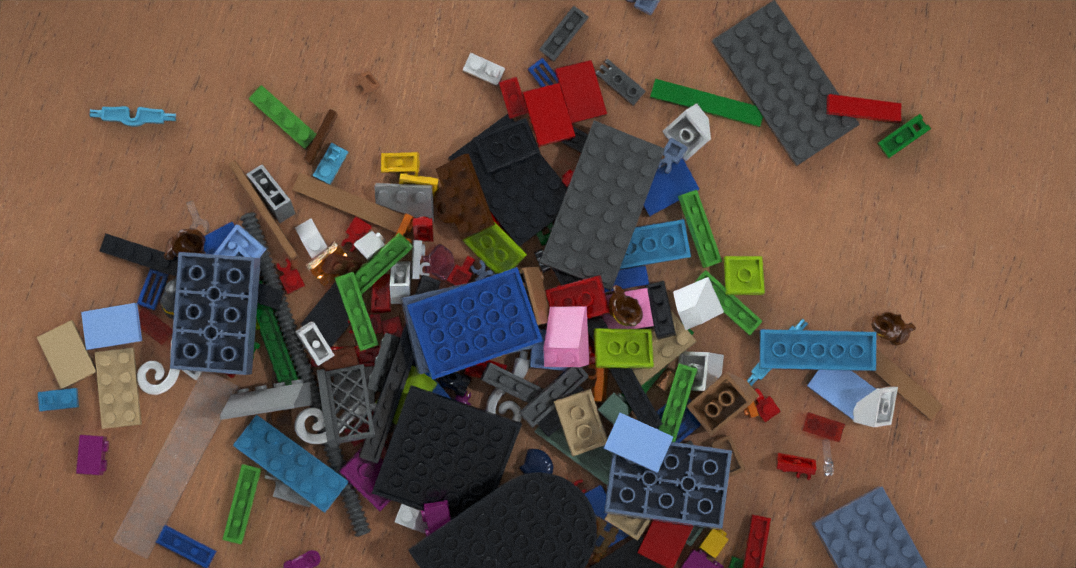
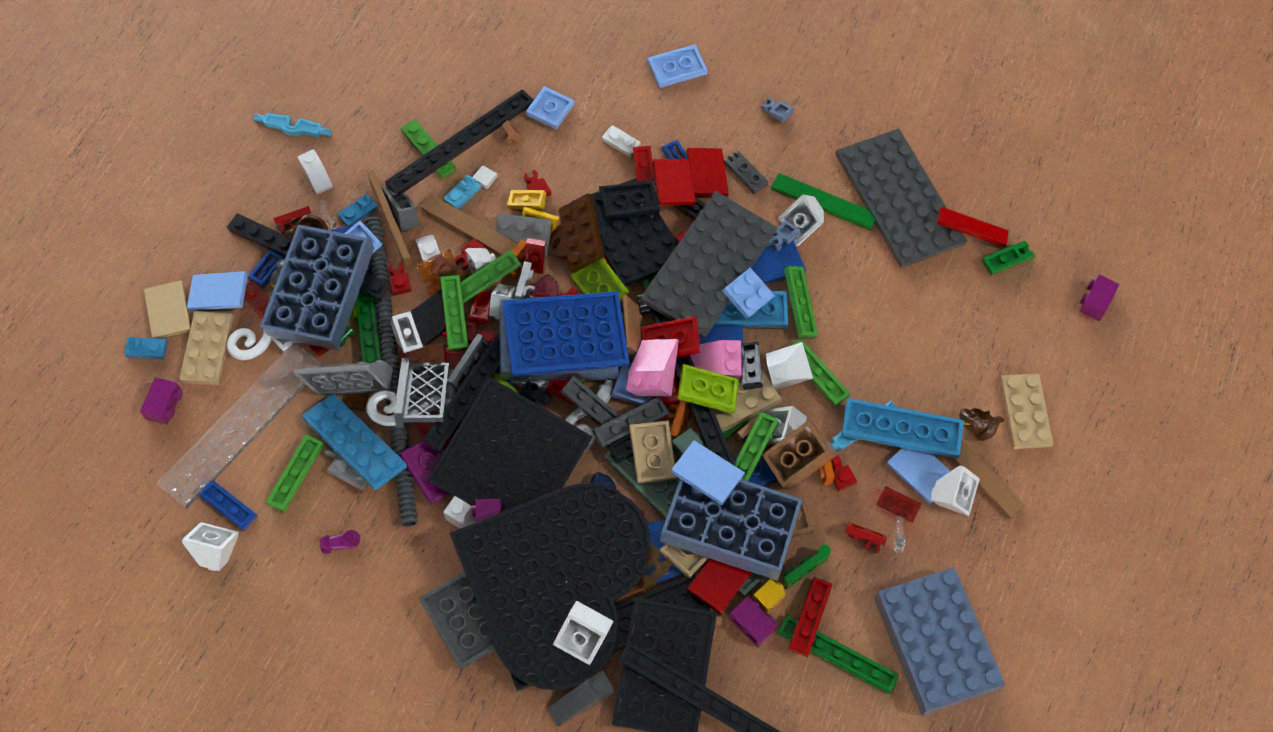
camera: 10 degrees right, 20 degrees down
(158, 230) = (284, 219): none -> red plate
(173, 170) = (315, 171): none -> white slope
(228, 205) = (358, 210): none -> dark azure plate
(316, 108) = (458, 143): none -> black plate
(320, 137) = (452, 174): reddish brown tile -> none
(350, 140) = (485, 177): none -> white tile
(401, 43) = (550, 107): none -> light blue plate
(407, 142) = (537, 184): none -> red plate
(563, 33) = (700, 124): dark grey plate -> none
(624, 308) = (715, 350): reddish brown hair -> none
(646, 233) = (748, 293): none -> light blue plate
(744, 275) = (837, 350): lime tile -> none
(744, 506) = (806, 566): none -> green plate
(936, 304) = (1026, 411): none -> tan plate
(999, 165) = (1099, 297): none -> magenta brick

